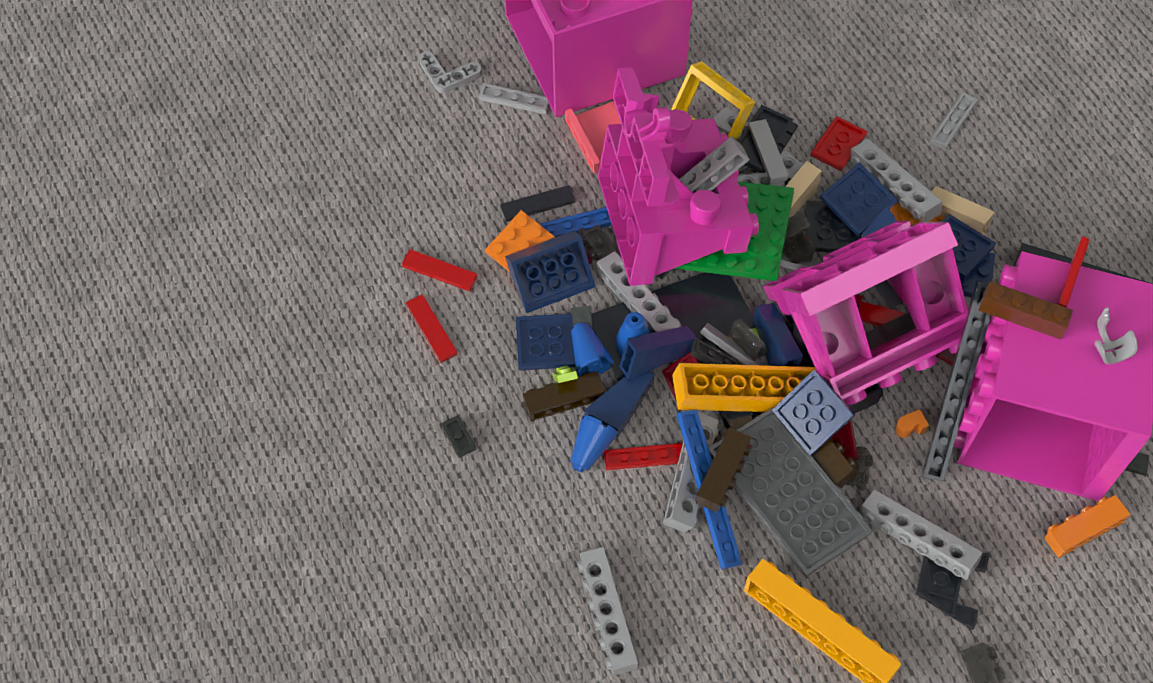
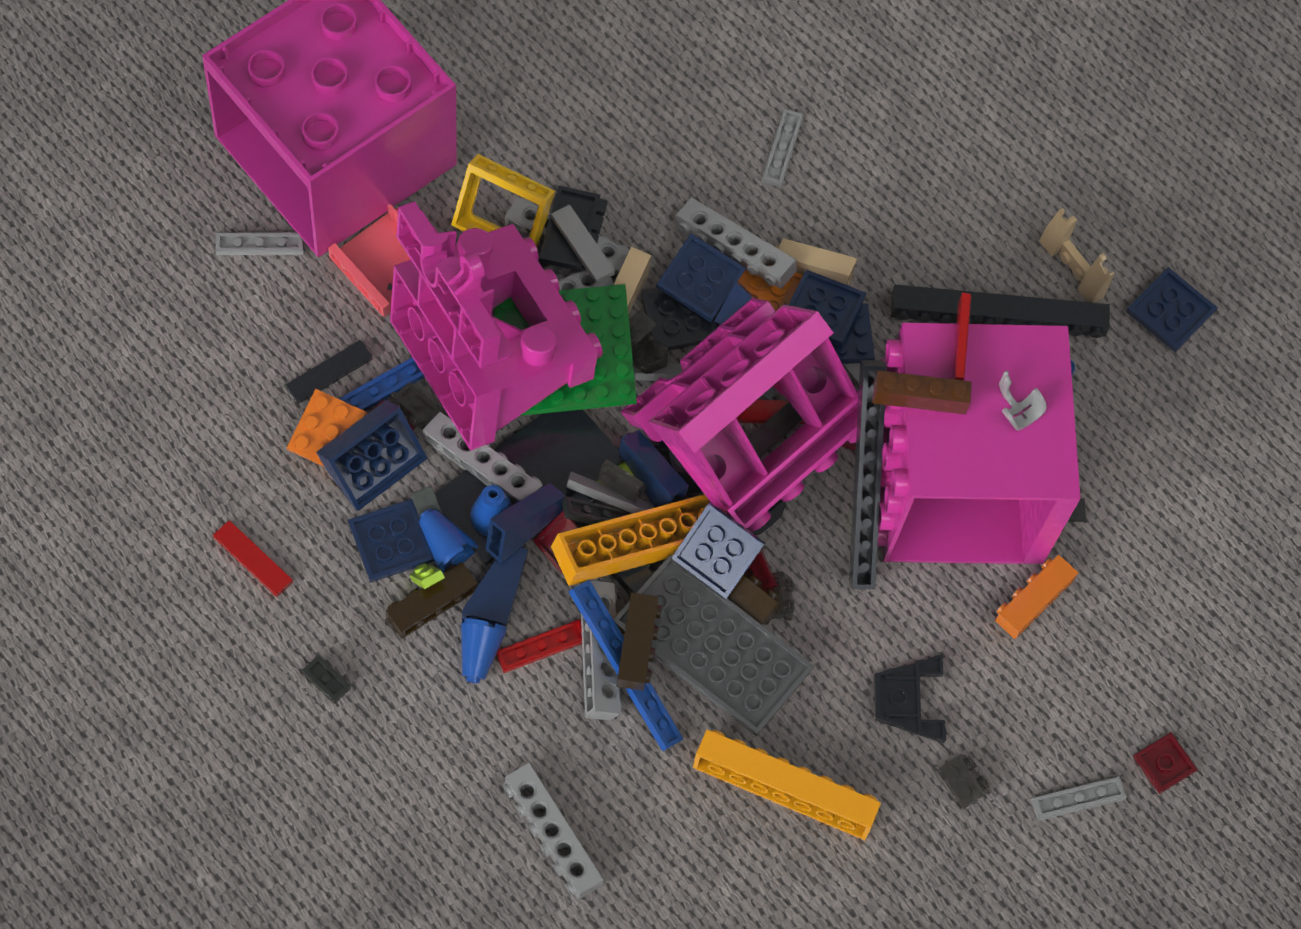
camera: 25 degrees left, 5 degrees up
(439, 270) = (239, 484): red tile -> none
(443, 77) = (163, 236): light grey beam -> none
(716, 166) = (535, 292): light grey brick -> none
(836, 143) = (658, 208): red tile -> none
(910, 423) = (823, 529): orange leg -> none
(930, 535) = (876, 650): light grey brick -> none

